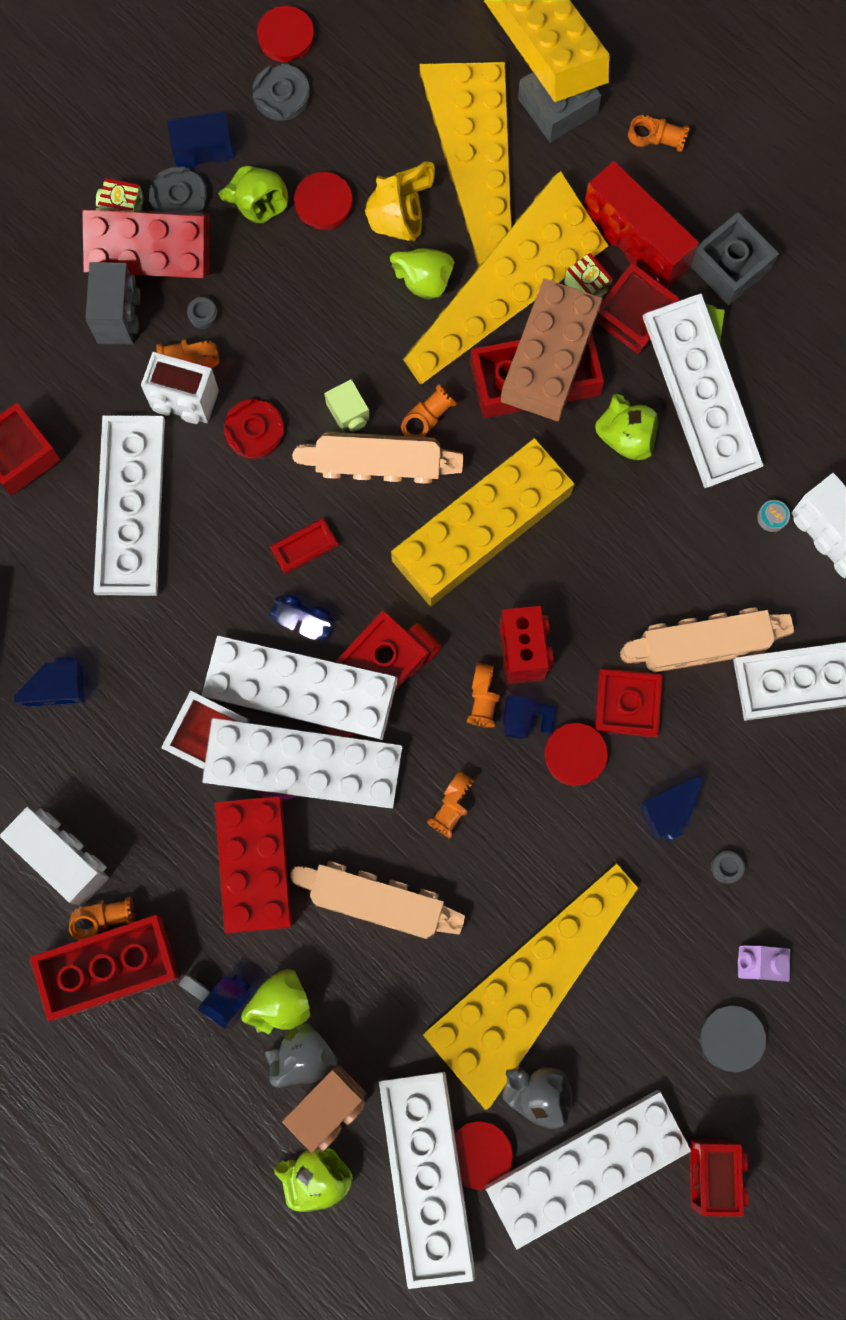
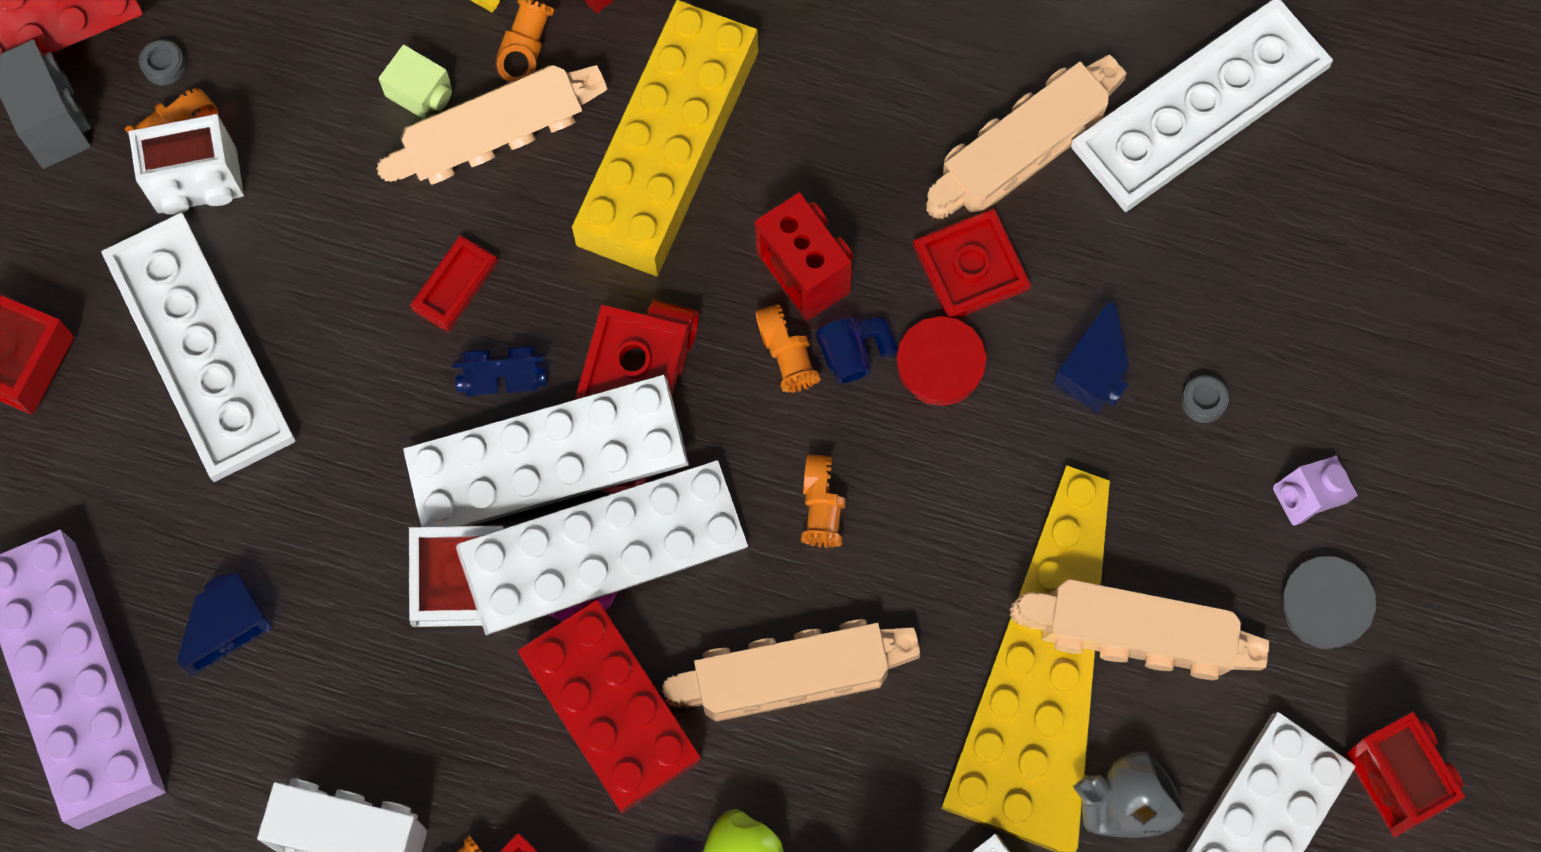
camera: 25 degrees left, 5 degrees down
(254, 428) = (308, 171): red tile -> none
(605, 993) = (1141, 628): none -> light nougat hinge

